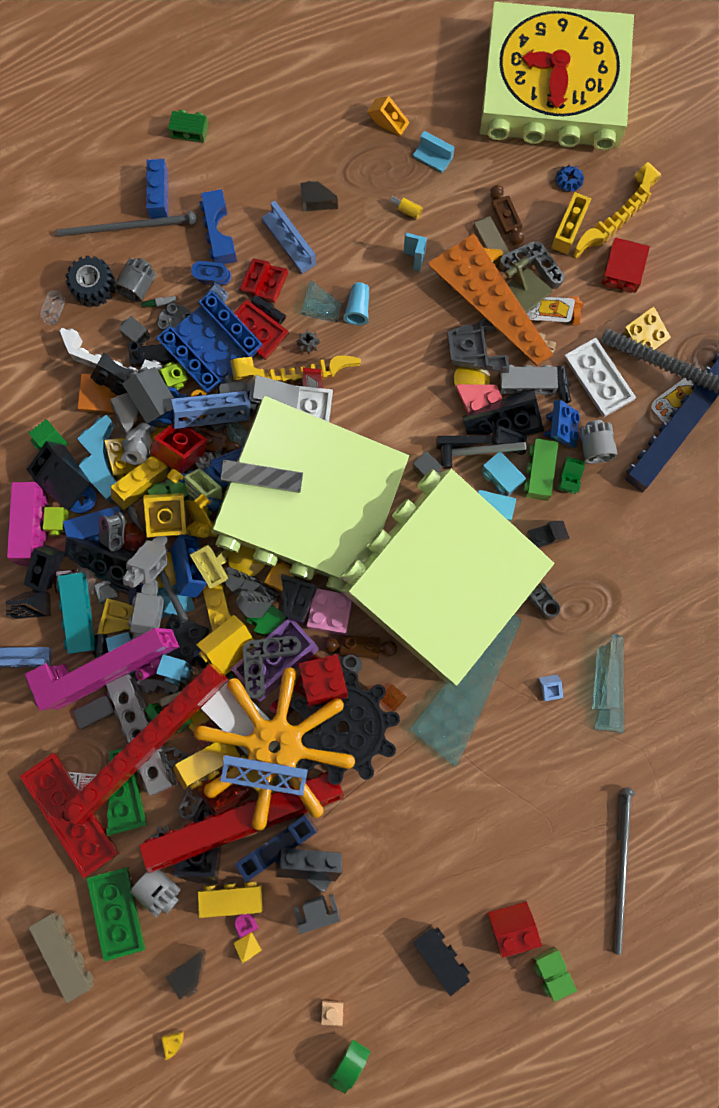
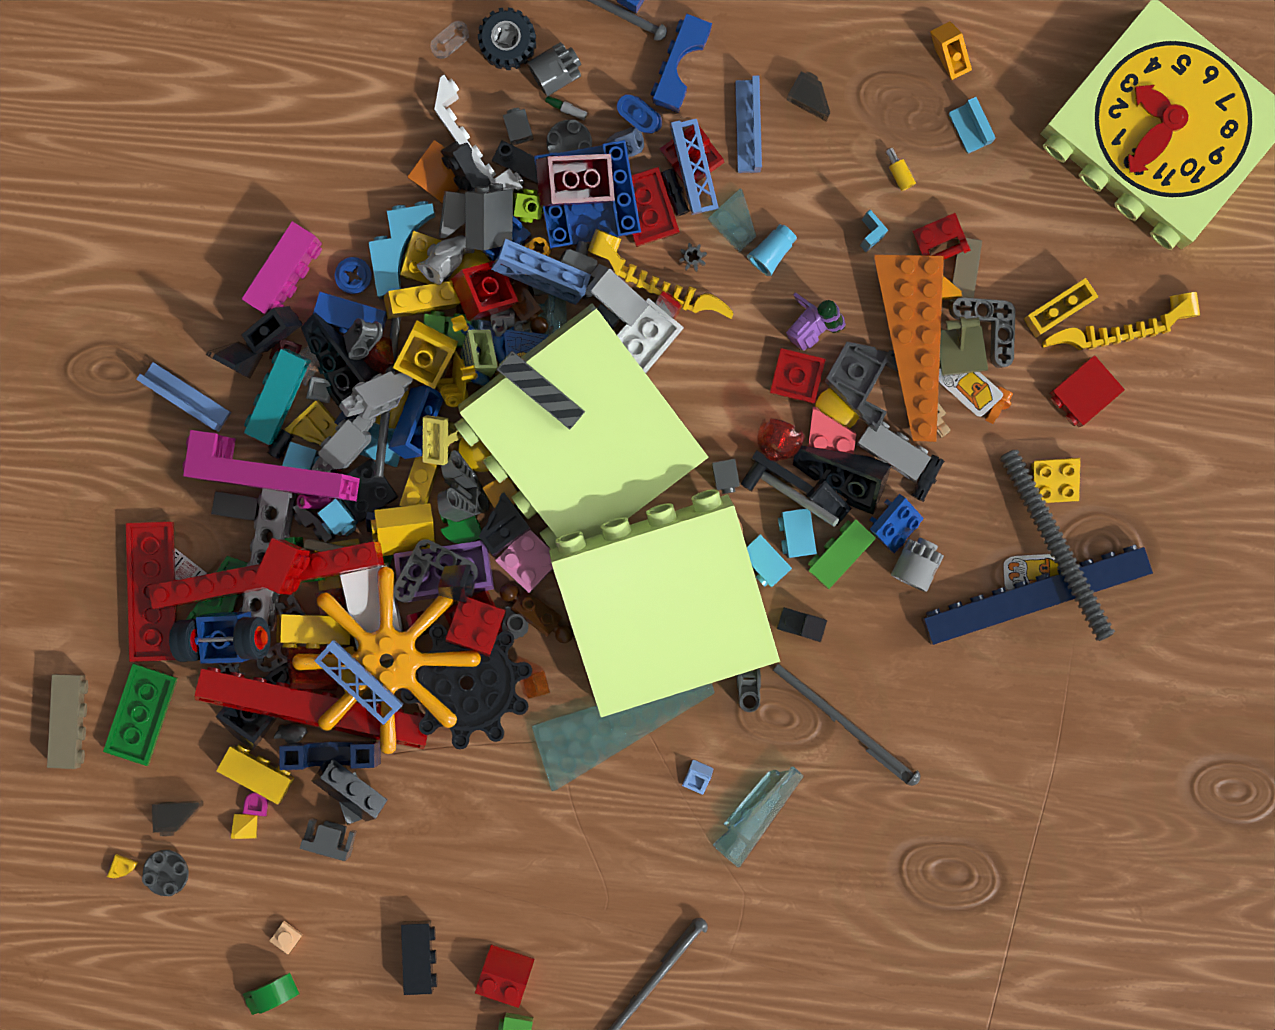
camera: 30 degrees right, 10 degrees up
(45, 432) = (356, 192): green brick -> none
(54, 520) = (312, 283): lime brick -> none
(58, 474) = (345, 239): black slope -> none
(140, 813) = (220, 638): none -> brick
(152, 724) = (282, 567): none -> red brick
(156, 892) = (190, 721): light grey gear -> none
(194, 333) = (575, 179): none -> brick
(209, 1025) = (165, 873): none -> dark grey dish
(238, 851) = (291, 733): none -> dark grey animal
(267, 287) = (686, 169): none -> medium blue fence
(289, 654) = (457, 582): none -> black slope
(418, 329) = (814, 321): none -> medium lavender piece
(430, 373) = (797, 376): none -> red plate
(447, 418) = (779, 439): none -> clear red cylinder
(461, 225) = (940, 233): none -> red plate
(507, 215) = (1001, 250): reddish brown plate -> none
(571, 475) = (866, 580): green brick -> none
(575, 182) = (1099, 262): blue gear -> none
(599, 377) = (971, 495): white plate -> none
(658, 586) = (874, 749): none -> dark grey bar

